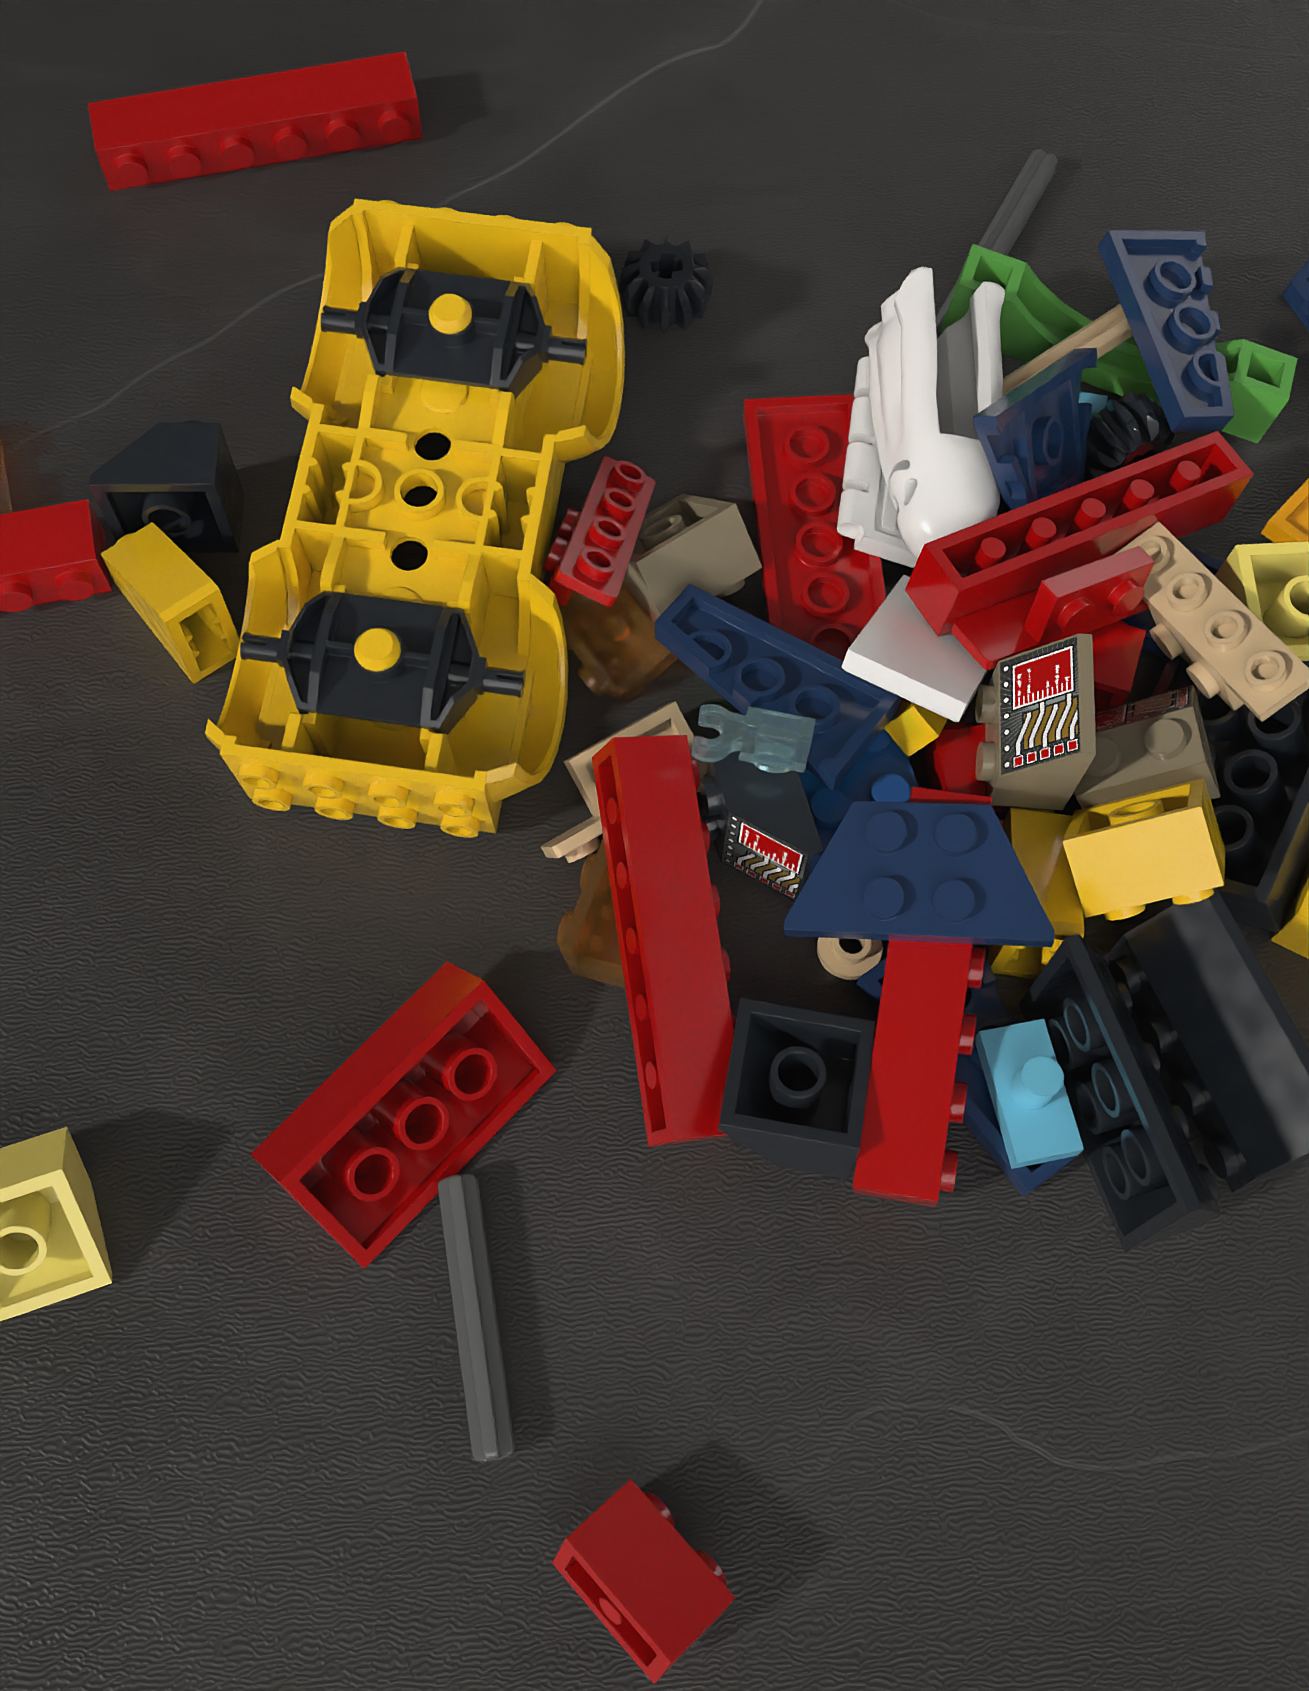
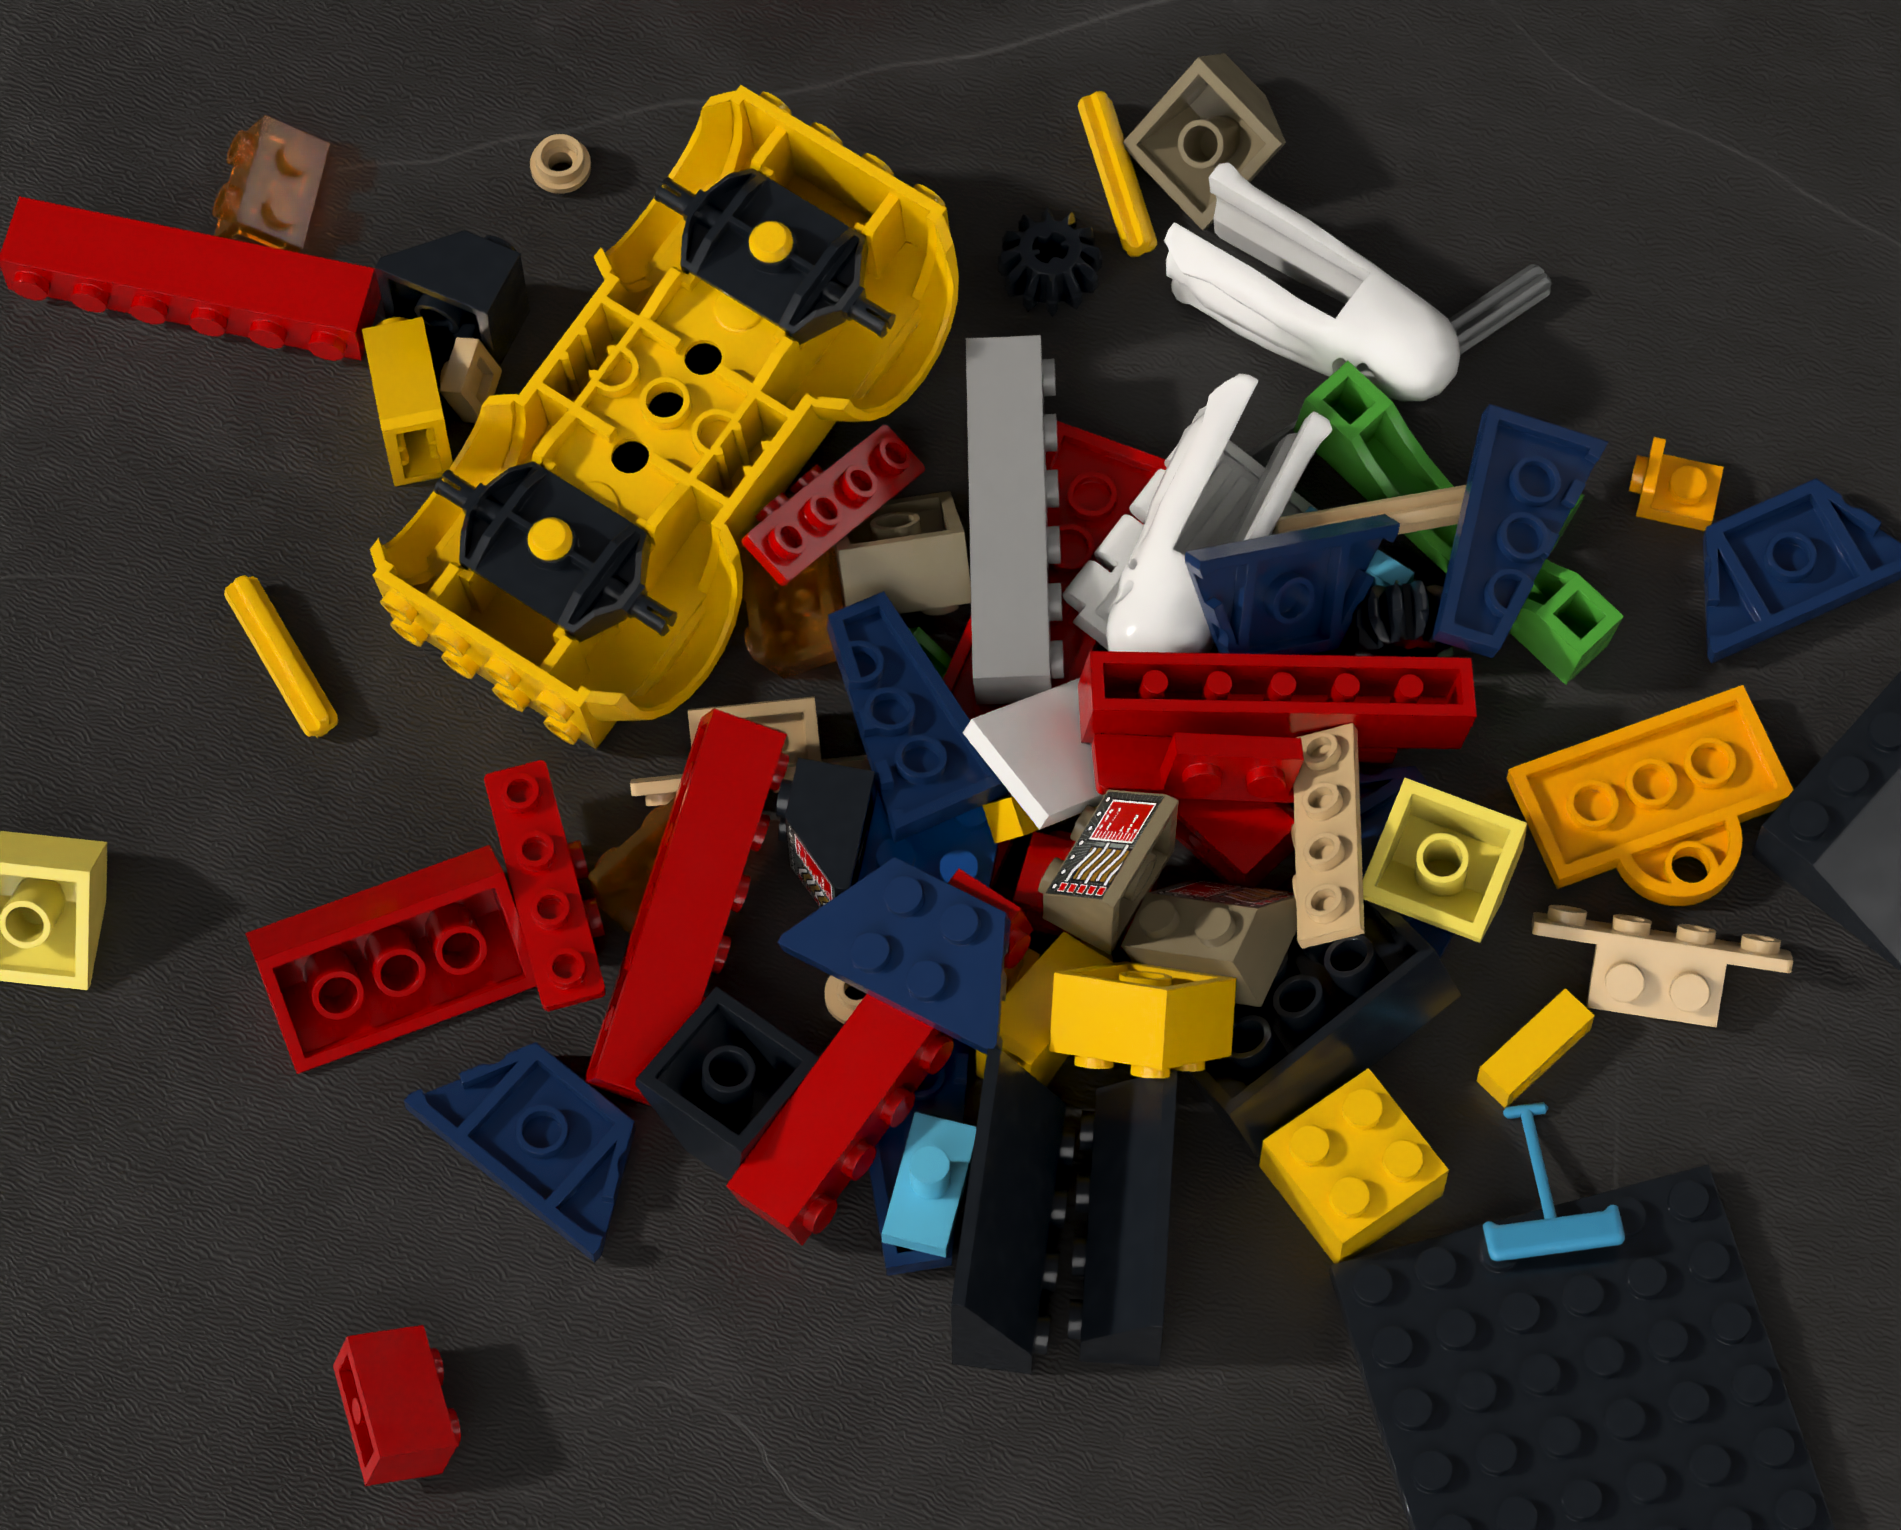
camera: 30 degrees right, 0 degrees up
(159, 875) = (281, 656): none -> yellow axle
(212, 364) = (555, 150): none -> tan plate
(221, 560) = (469, 378): none -> tan plate
(475, 1319) = (368, 1151): dark grey axle -> none
(526, 978) = (546, 886): none -> red bracket
(634, 1222) = (538, 1138): none -> dark blue wing
(678, 206) = (1117, 174): none -> yellow axle
(739, 149) = (1202, 122): none -> dark tan slope
(754, 464) = (1010, 519): none -> light grey brick
(764, 737) = (843, 768): clear light blue plate -> none
(879, 216) = (1381, 330): none -> white piece
(1242, 268) = (1675, 488): none -> light orange bracket

